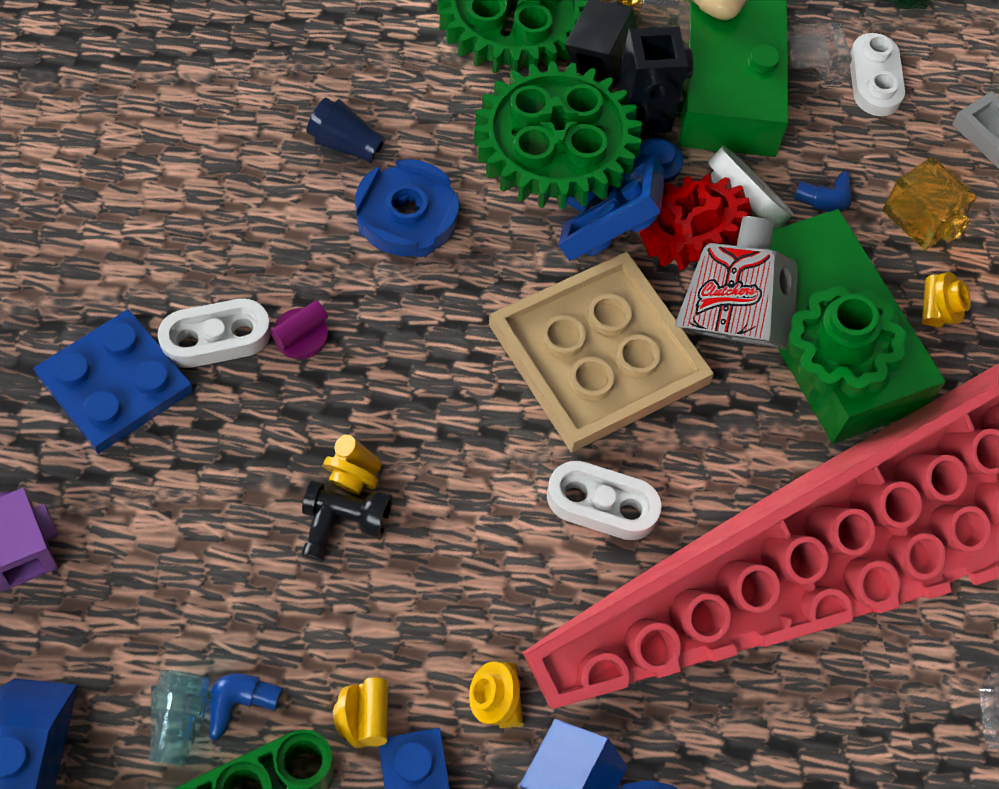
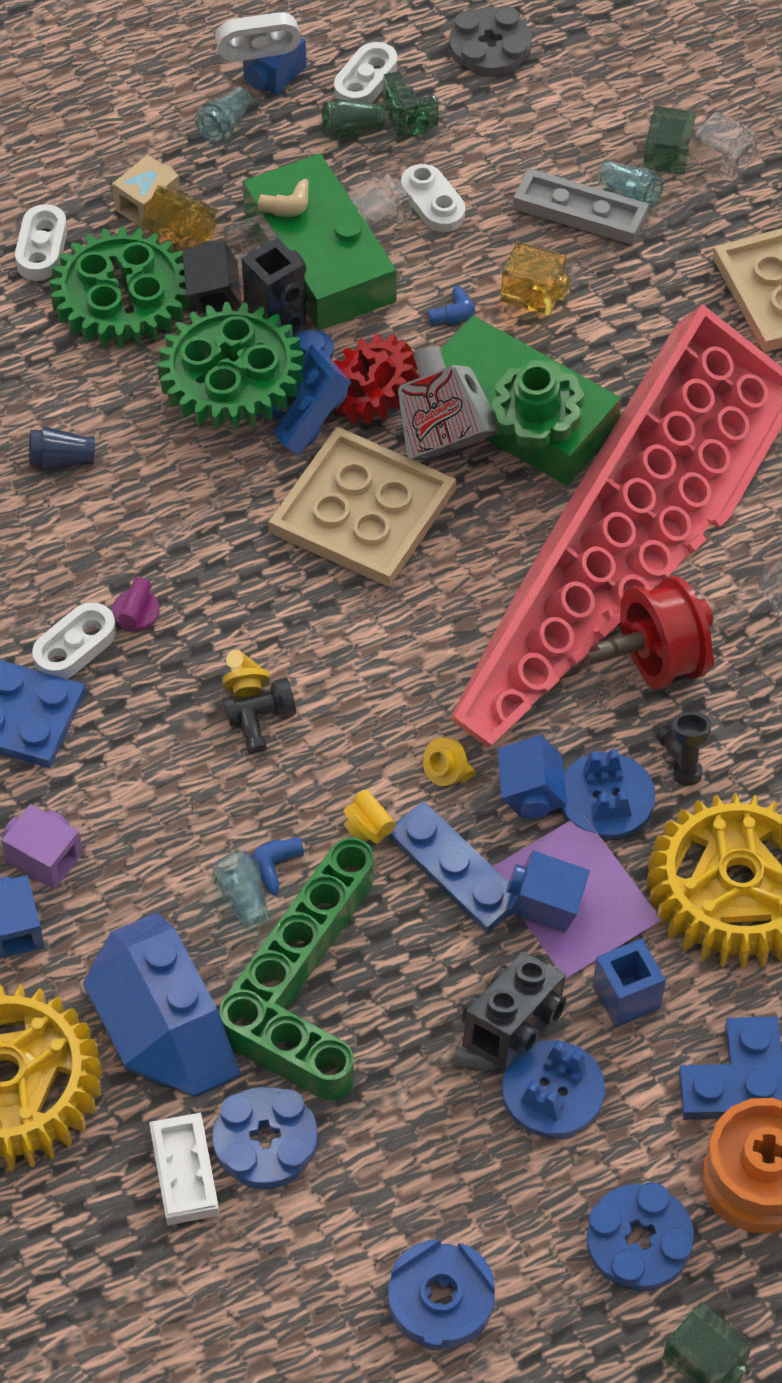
camera: 25 degrees left, 5 degrees down
(402, 233) = (154, 501): blue plate -> none
(605, 495) = (433, 602): white plate -> none
(762, 198) = (370, 325): white plate -> none
(832, 689) = (662, 633): none -> red wheel
(945, 300) = (585, 343): yellow plate -> none

